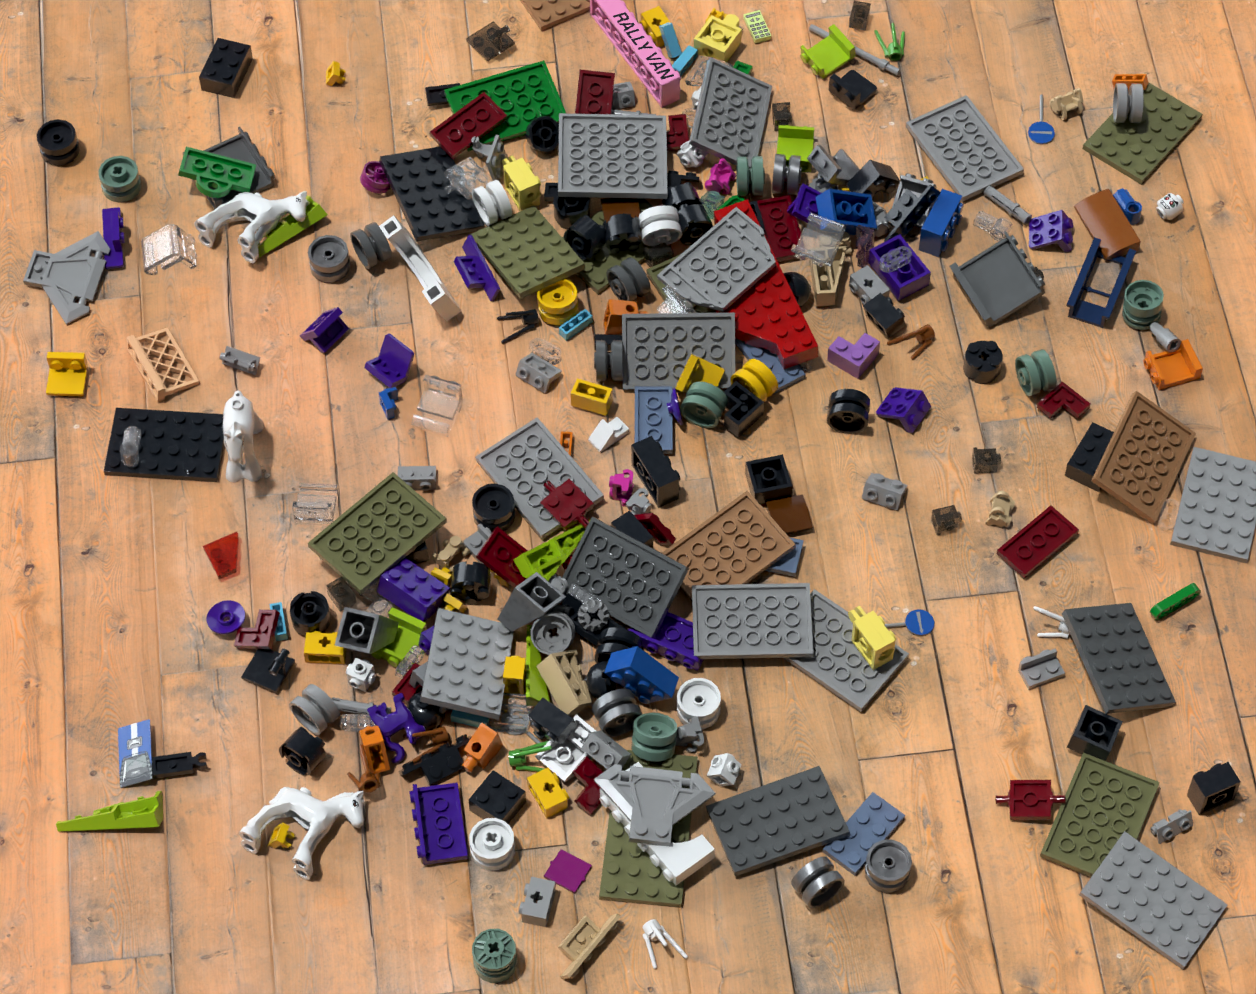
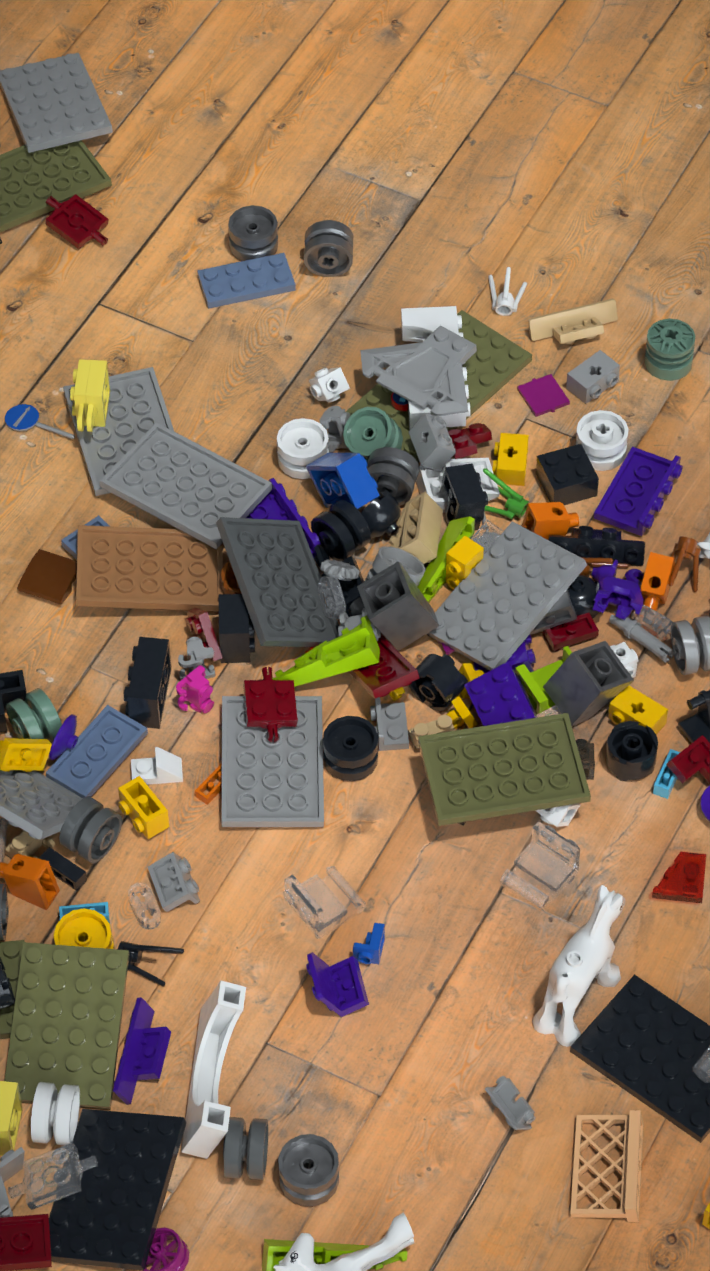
camera: 145 degrees left, 5 degrees down
(325, 329) = (382, 1082): dark purple bracket -> none
(413, 656) = (553, 651): clear beam -> none
(418, 476) = (405, 842): light grey bracket -> none
(768, 479) = (40, 612): black brick -> none
(777, 820) = (314, 322): dark grey plate -> none

